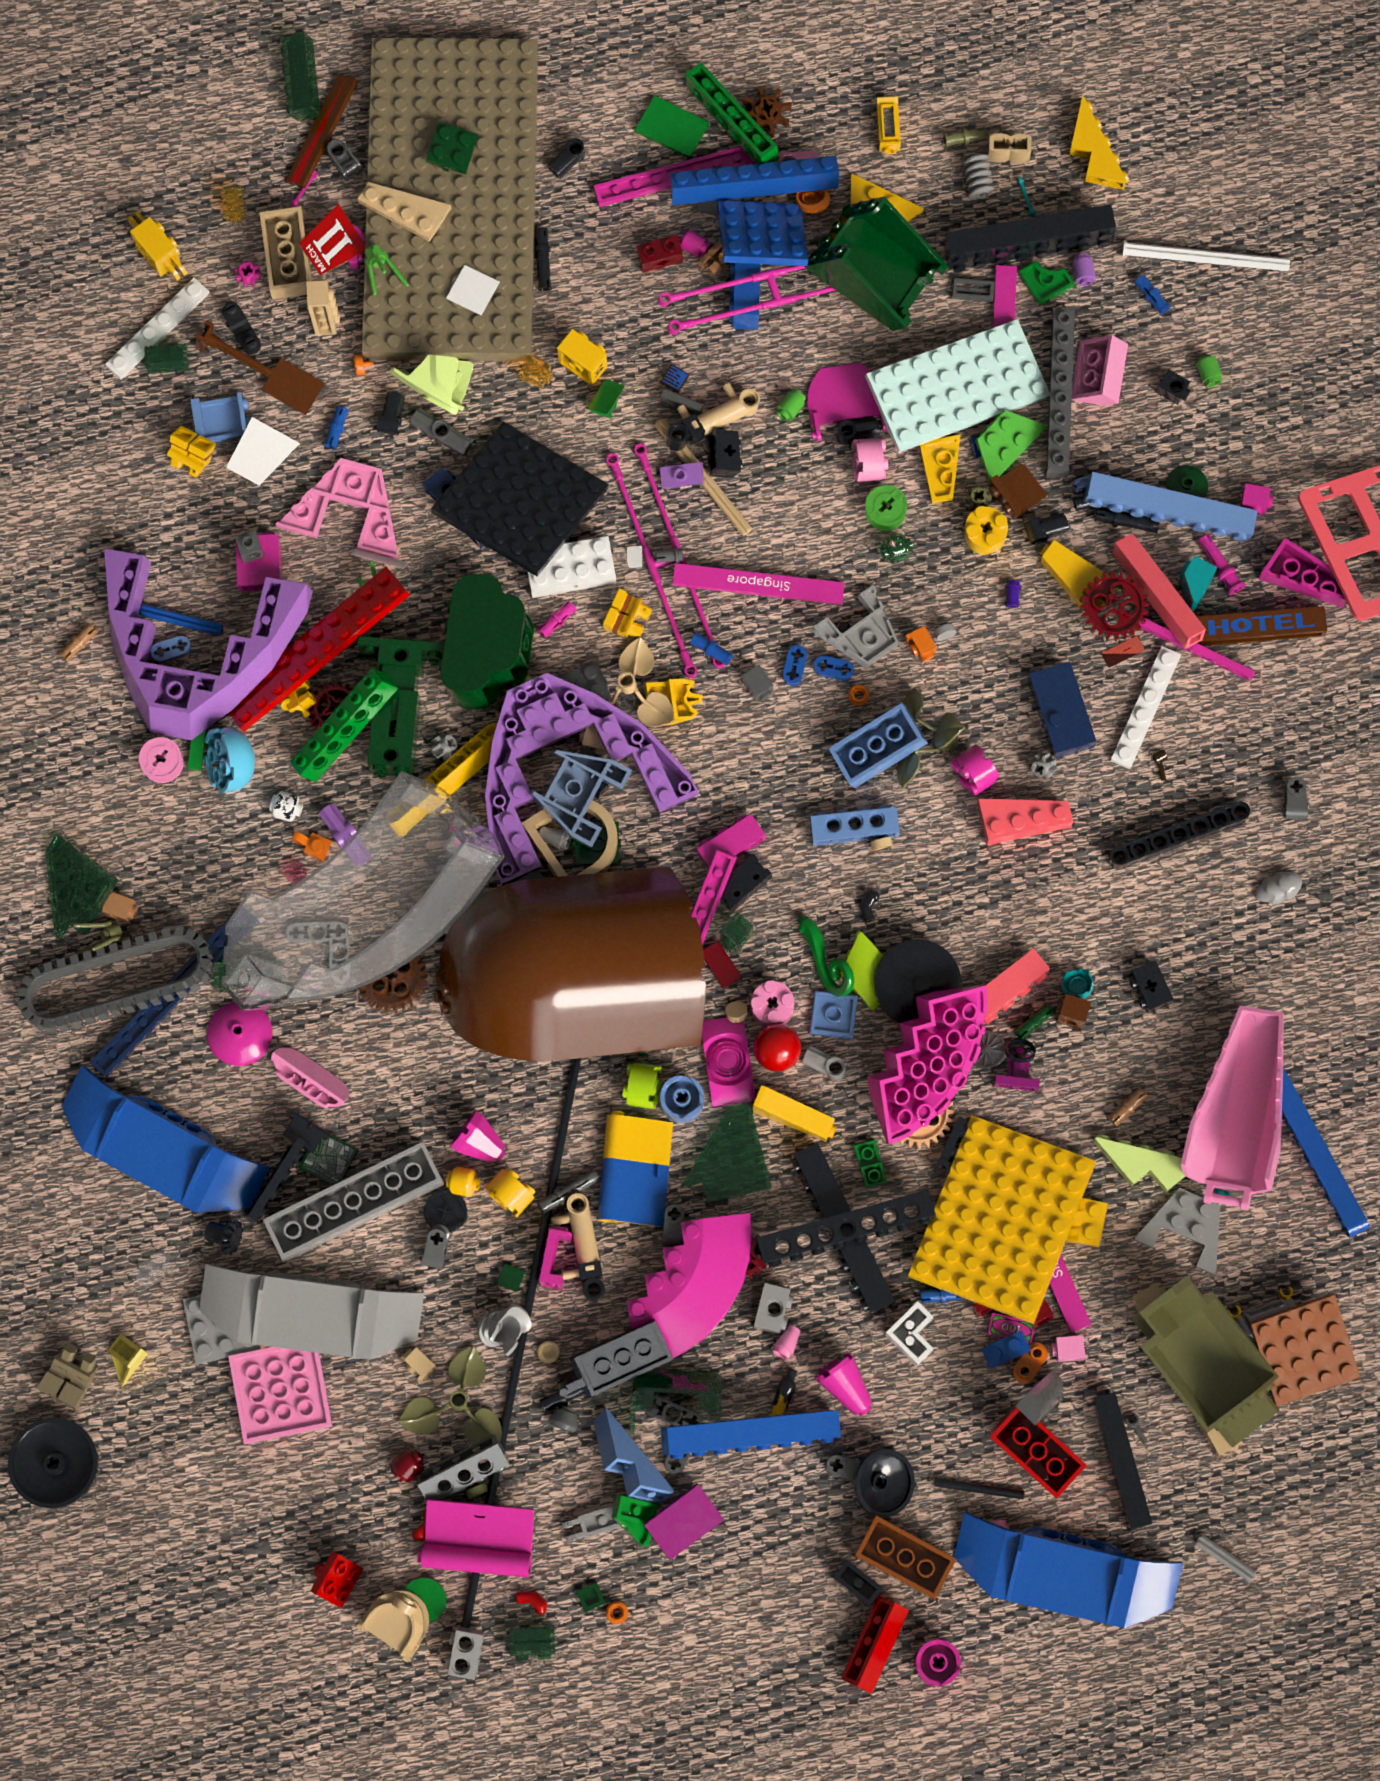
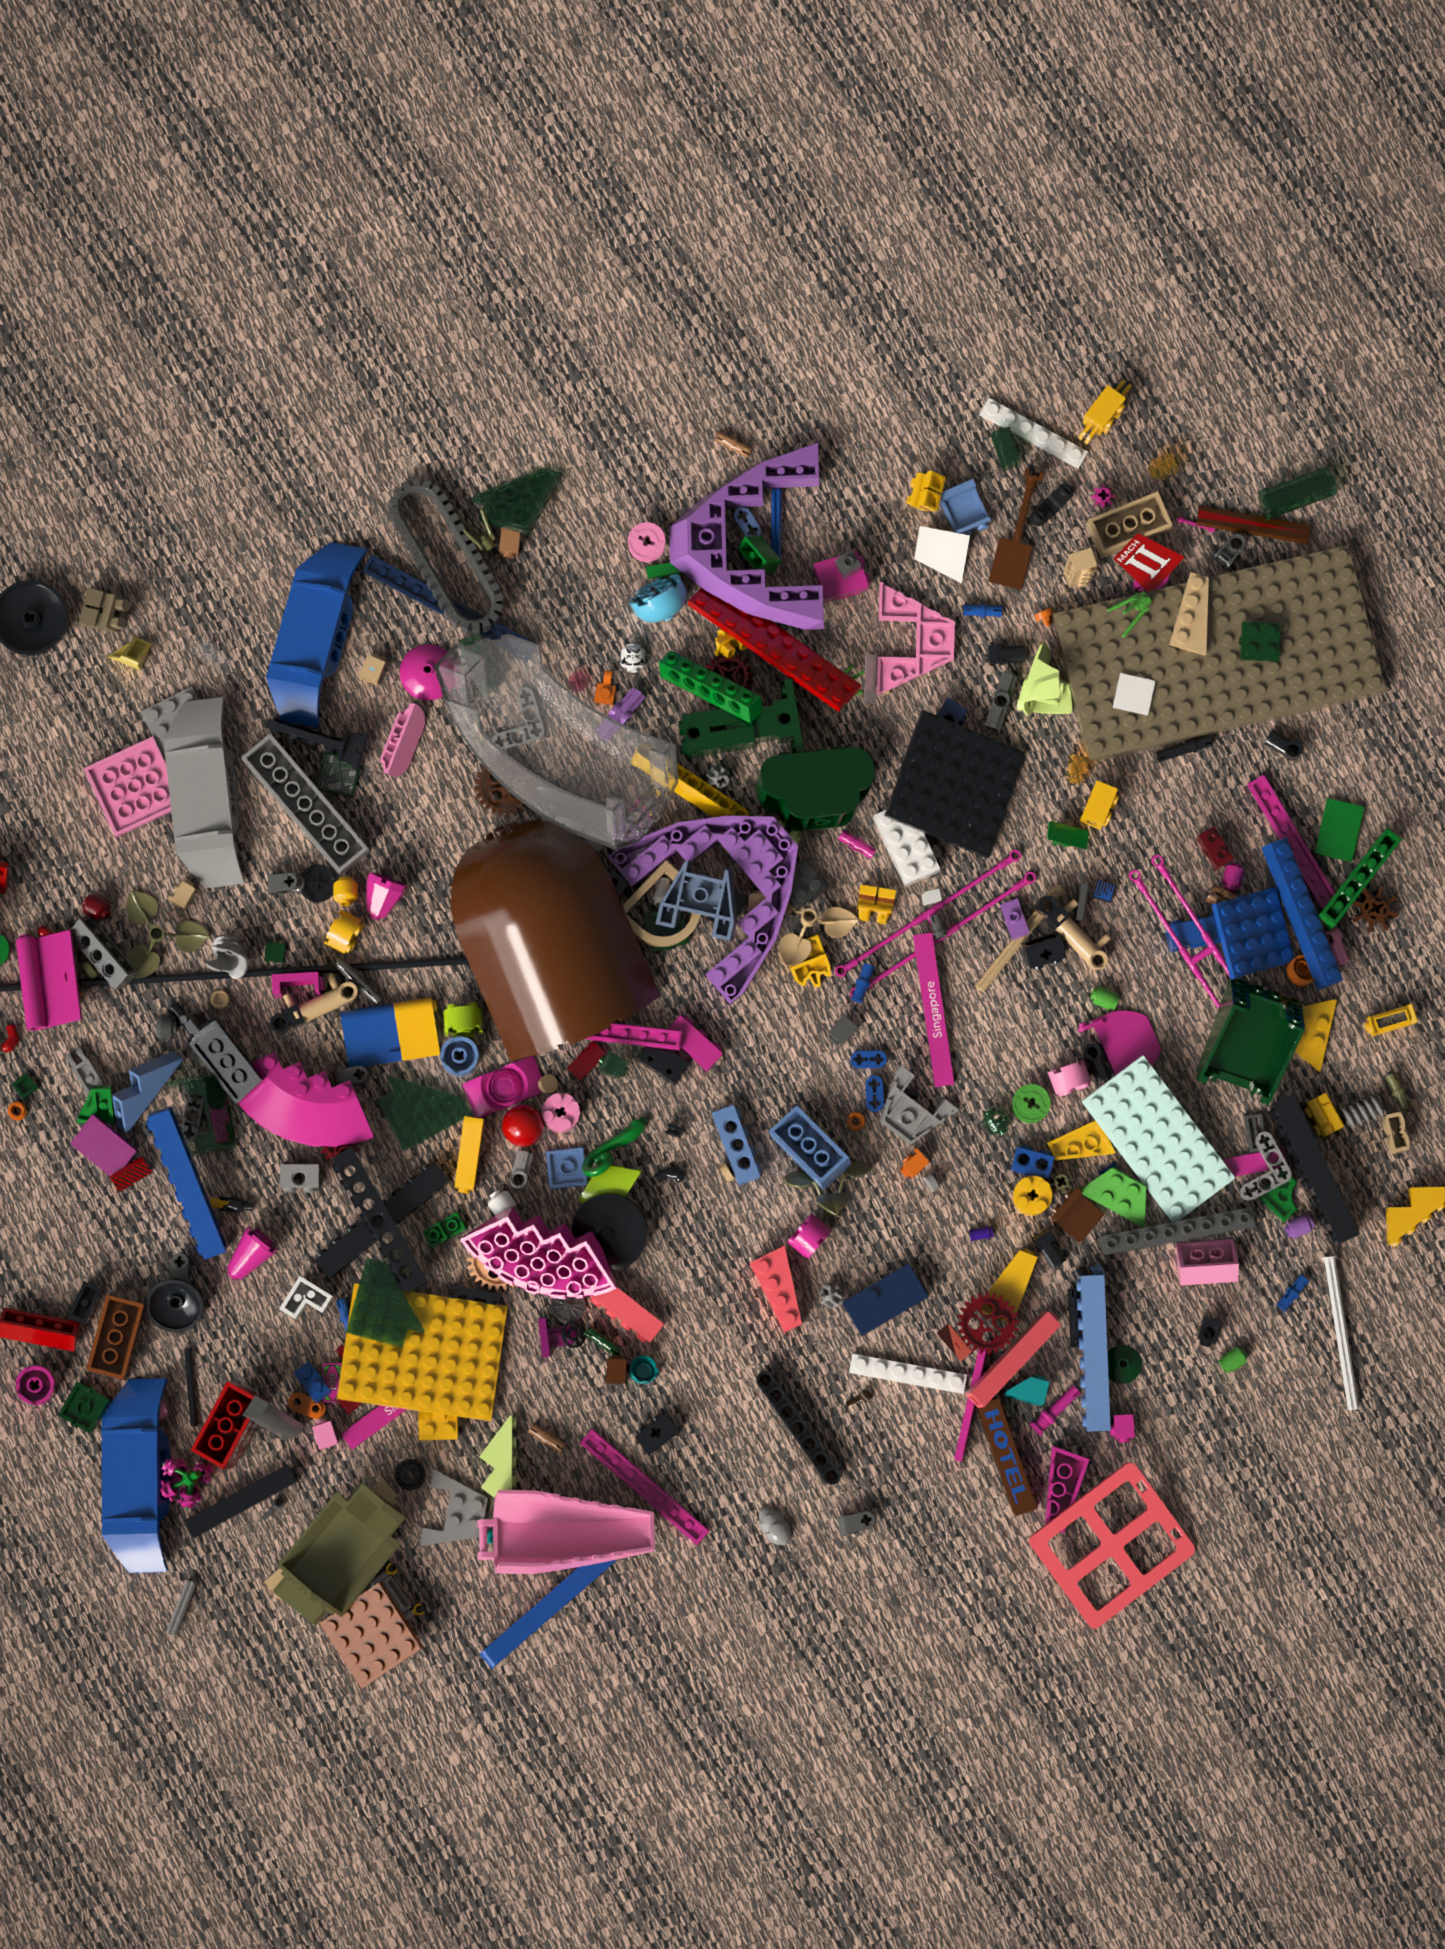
camera: 70 degrees right, 5 degrees up
(209, 641) = (759, 554): none -> green brick
(220, 1091) = (373, 669): none -> tan brick
(225, 1235) = (252, 707): black gear -> none
(722, 1499) = (130, 1174): none -> red tile
(786, 1344) = (274, 1196): bright pink cone -> none
(822, 888) = (674, 1131): none -> black bush
(856, 1093) = (501, 1201): none -> white head
(943, 1249) = (381, 1307): none -> clear green wing
(953, 523) = (1031, 1167): none -> blue brick
(972, 214) = (1323, 1115): none -> yellow brick
(975, 1614) = (84, 1407): none -> dark green plate
(1022, 282) = (1272, 1174): none -> light grey beam
(1032, 212) = (1343, 1168): teal hinge -> none
(1098, 1515) = (179, 1471): none -> dark pink plant
(1123, 1264) = (409, 1484): none -> black gear
(1204, 1015) = (644, 1486): none -> dark pink tile

